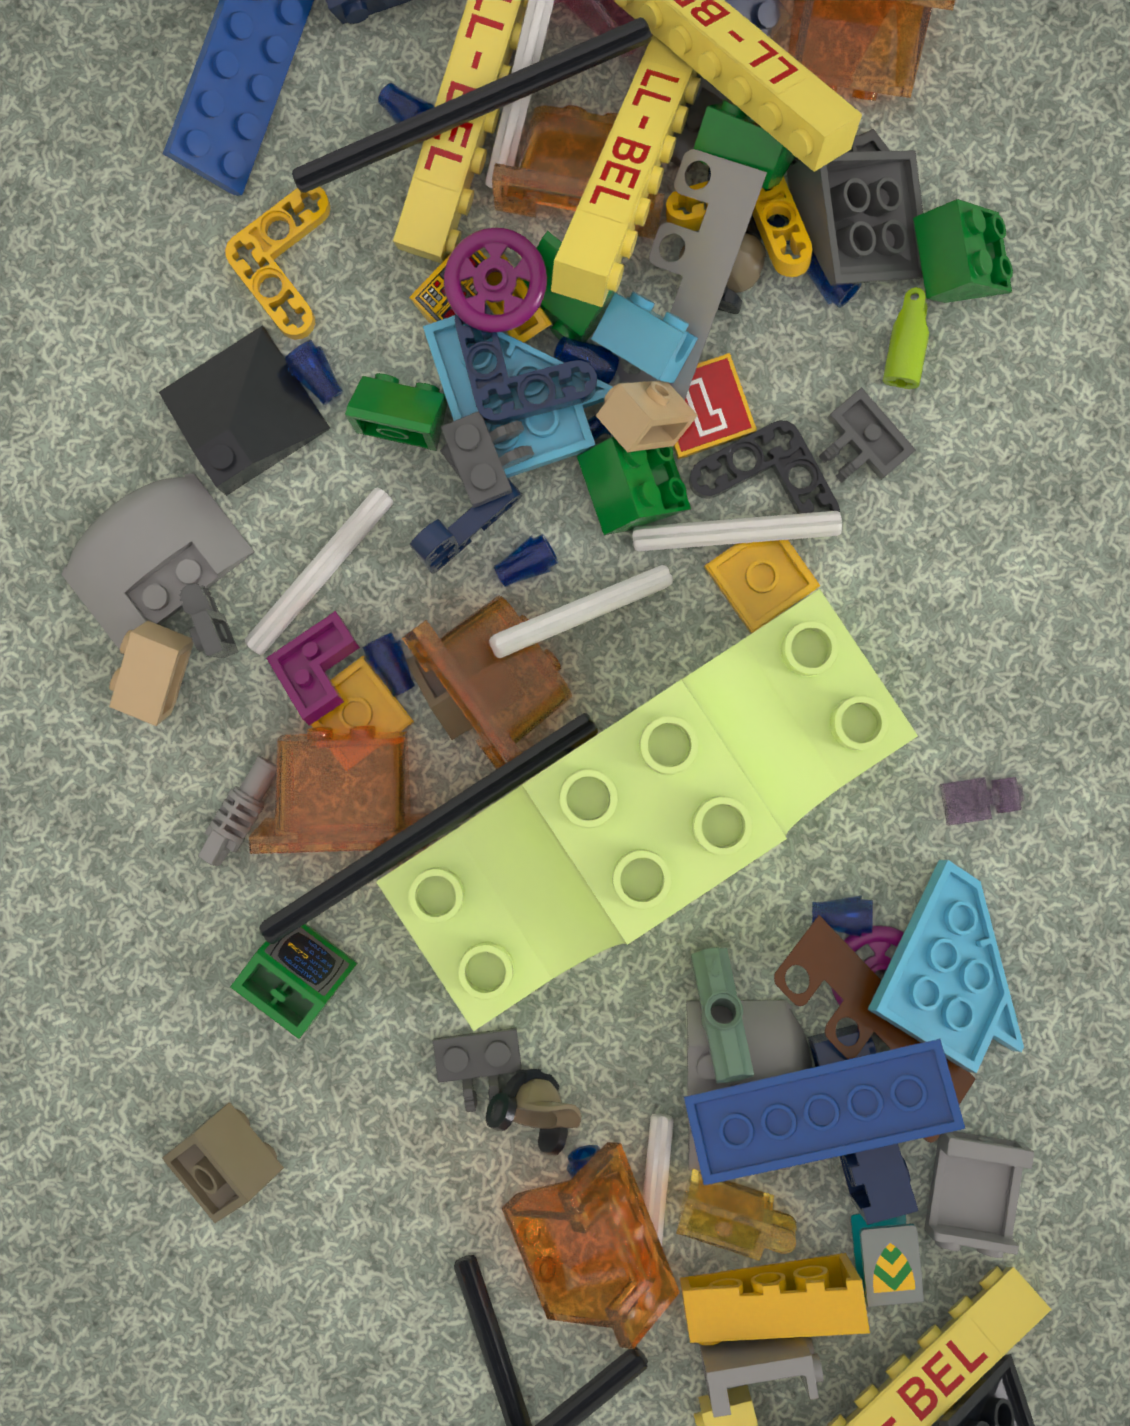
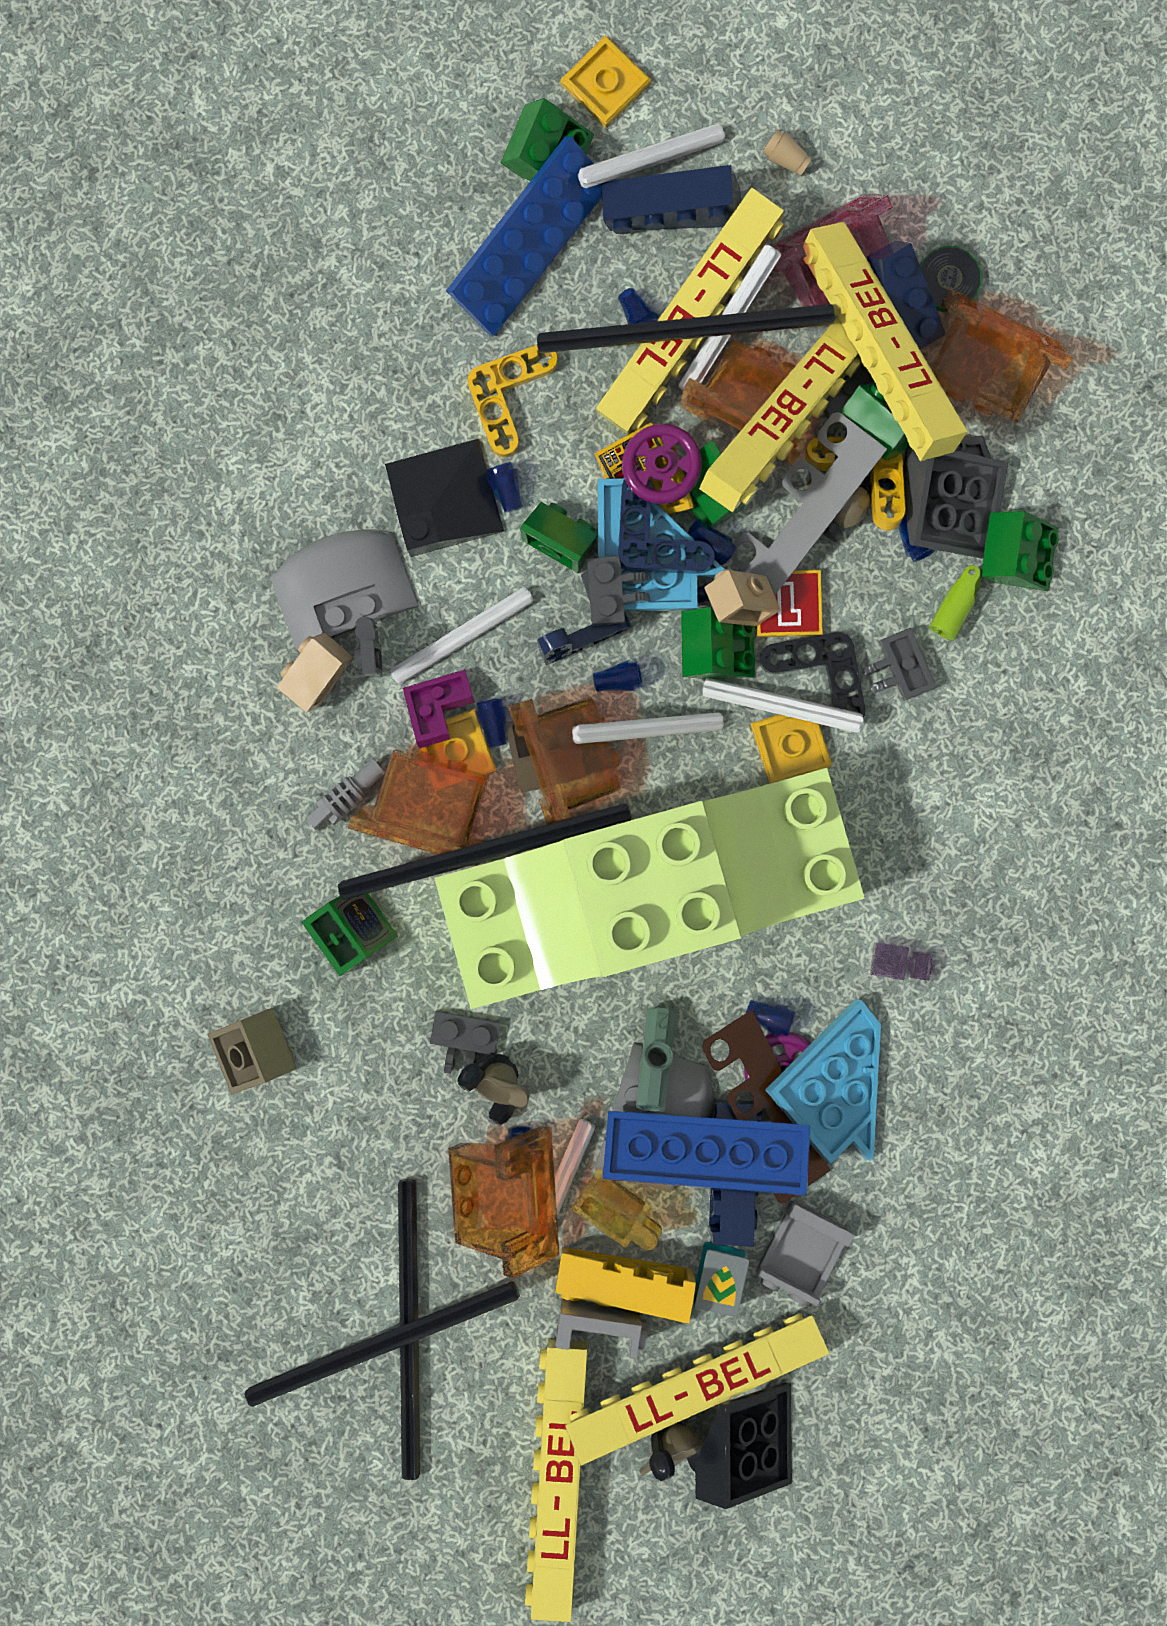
camera: 25 degrees right, 0 degrees up
(644, 337) = (760, 539): medium azure brick -> none

